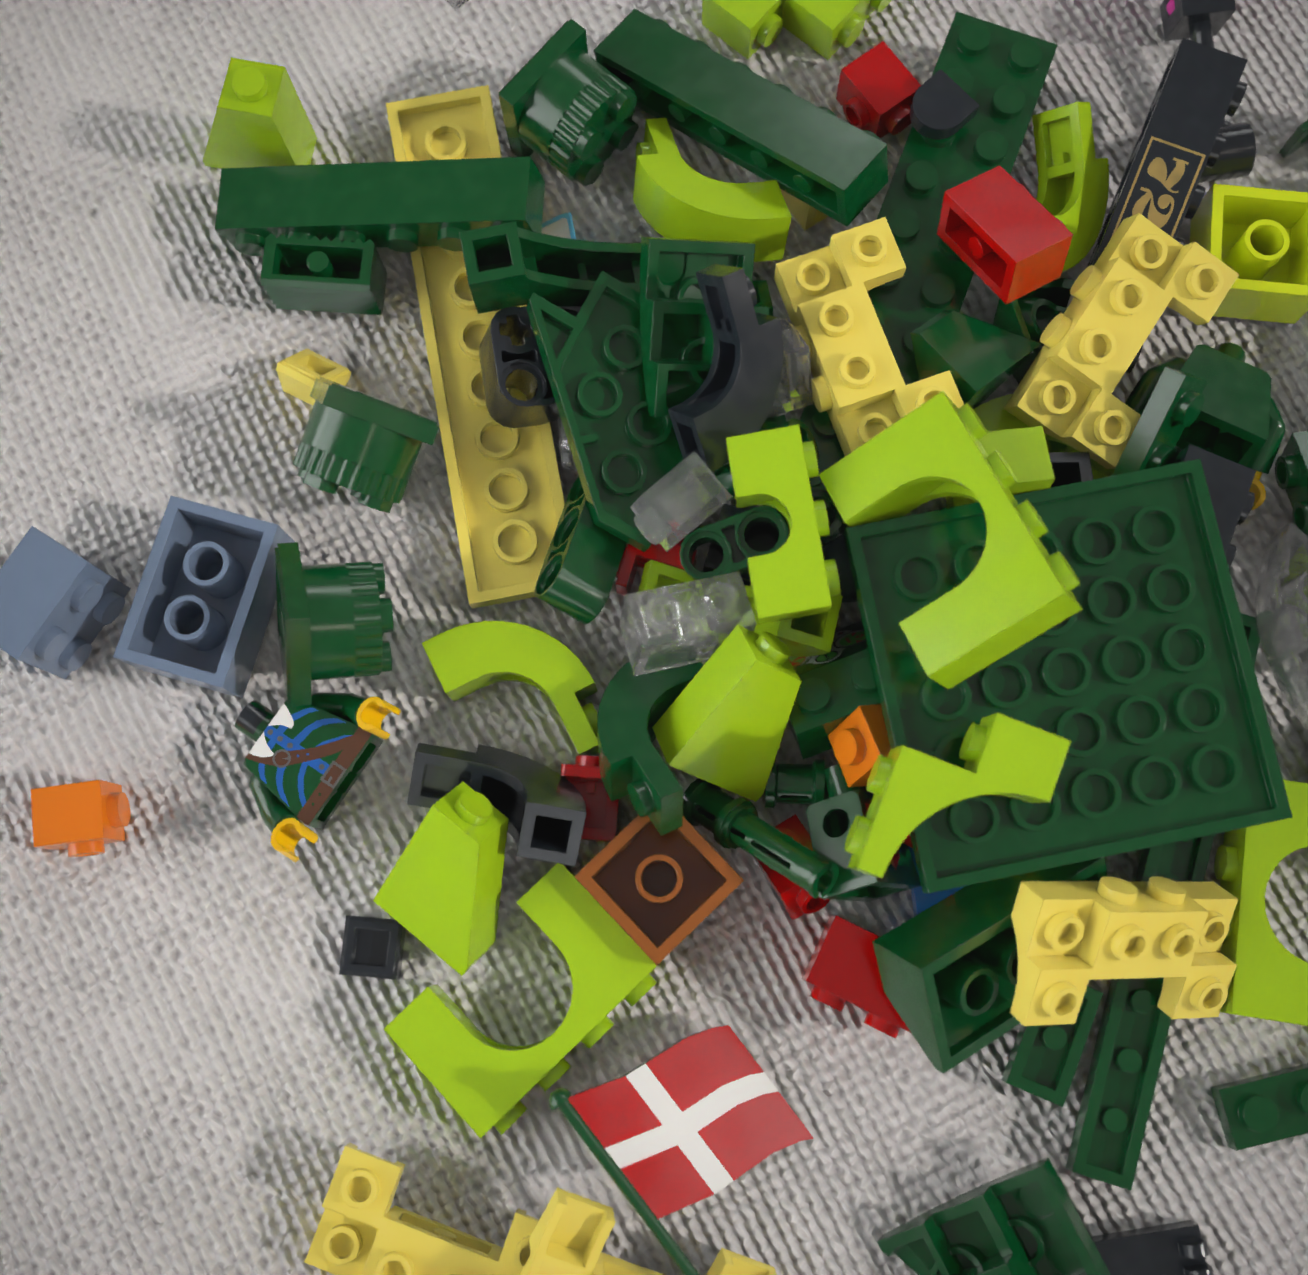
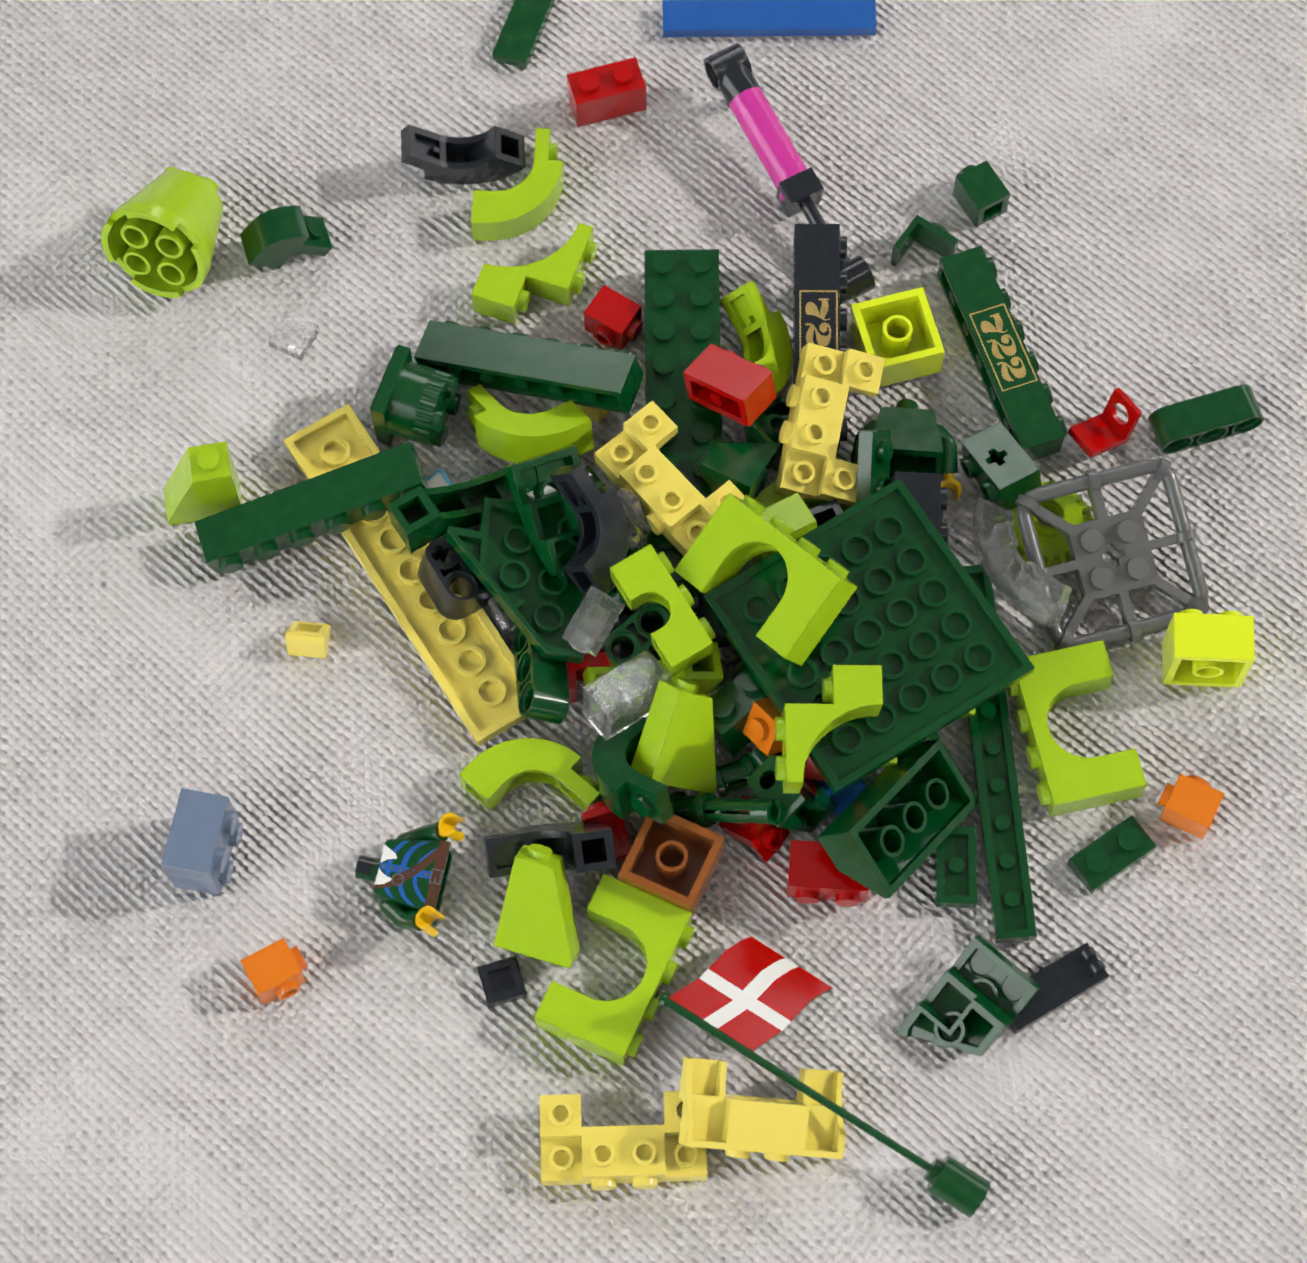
camera: 25 degrees left, 10 degrees down
(203, 597) = (302, 800): sand blue brick -> none
(324, 275) = (292, 567): dark green brick -> none
(329, 621) = (393, 782): dark green piece -> none
(360, 445) = (367, 663): dark green piece -> none
(941, 107) = (659, 317): black tile -> none
(1120, 932) = (968, 773): light yellow bracket -> none

